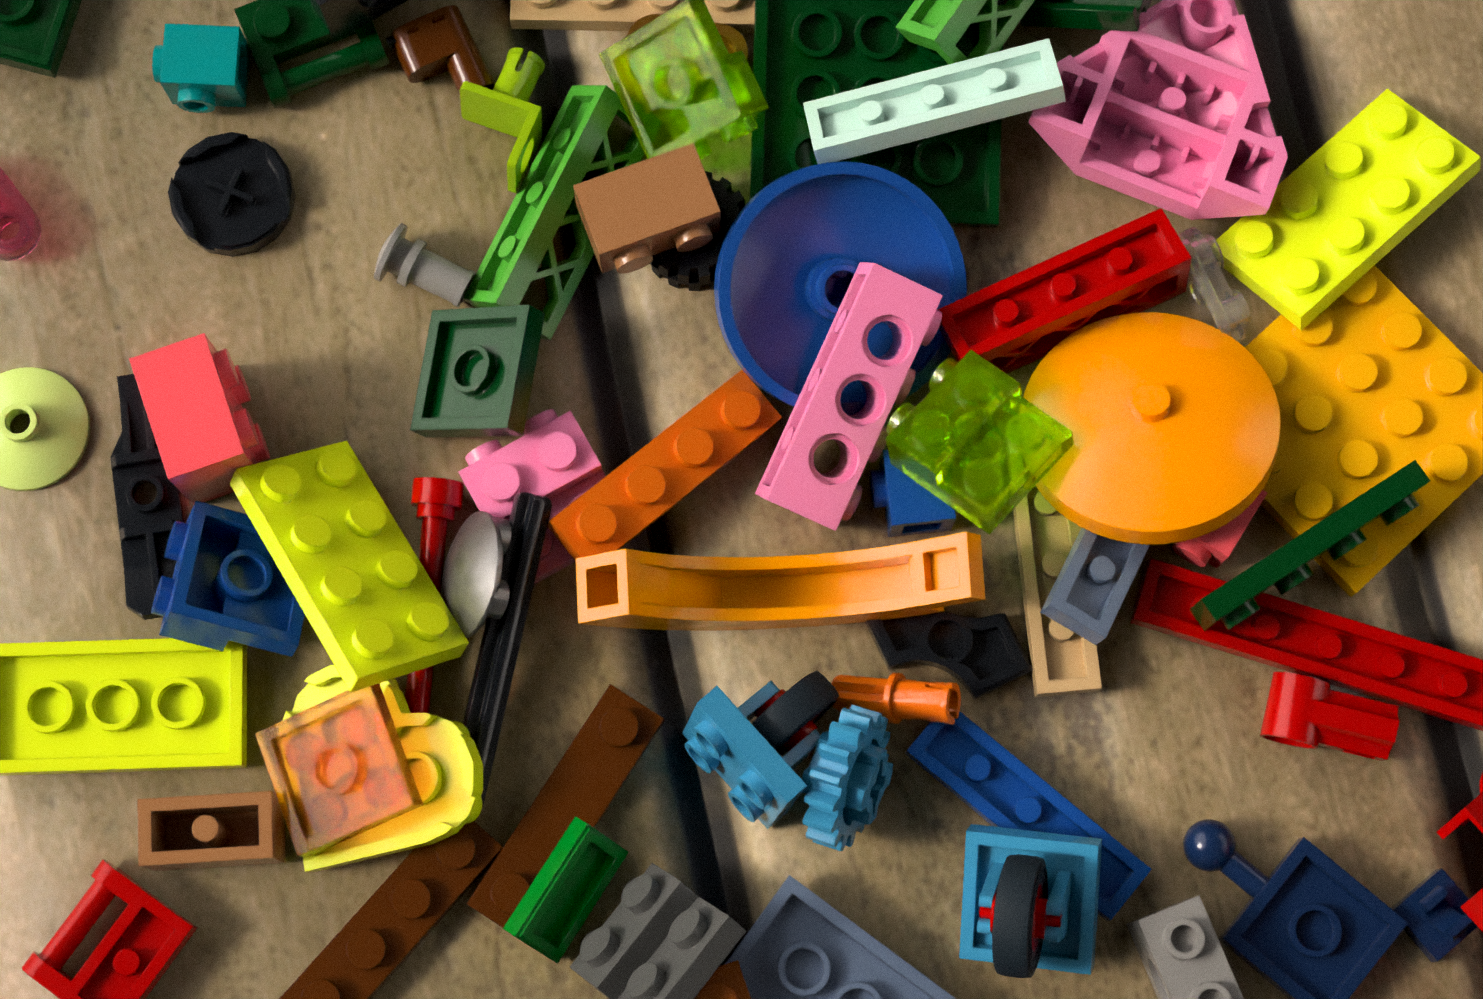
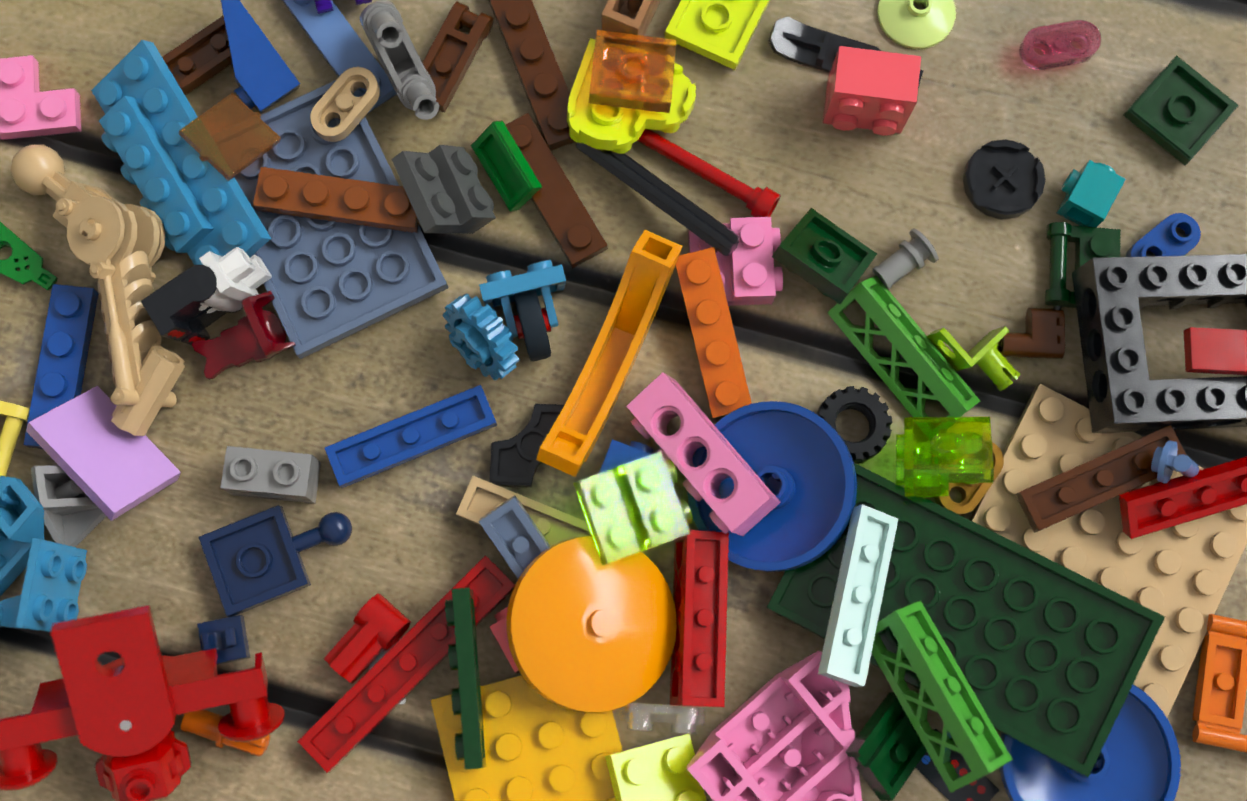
camera: 115 degrees right, 0 degrees up
(225, 586) = (768, 72): blue plate -> none
(348, 565) = (745, 130): neon yellow plate -> none
(474, 570) = (693, 187): flat silver dish -> none
(648, 210) = (873, 392): medium nougat brick -> none
(900, 697) = (512, 394): orange axle -> none
(1030, 900) = (356, 403): dark azure plate -> none

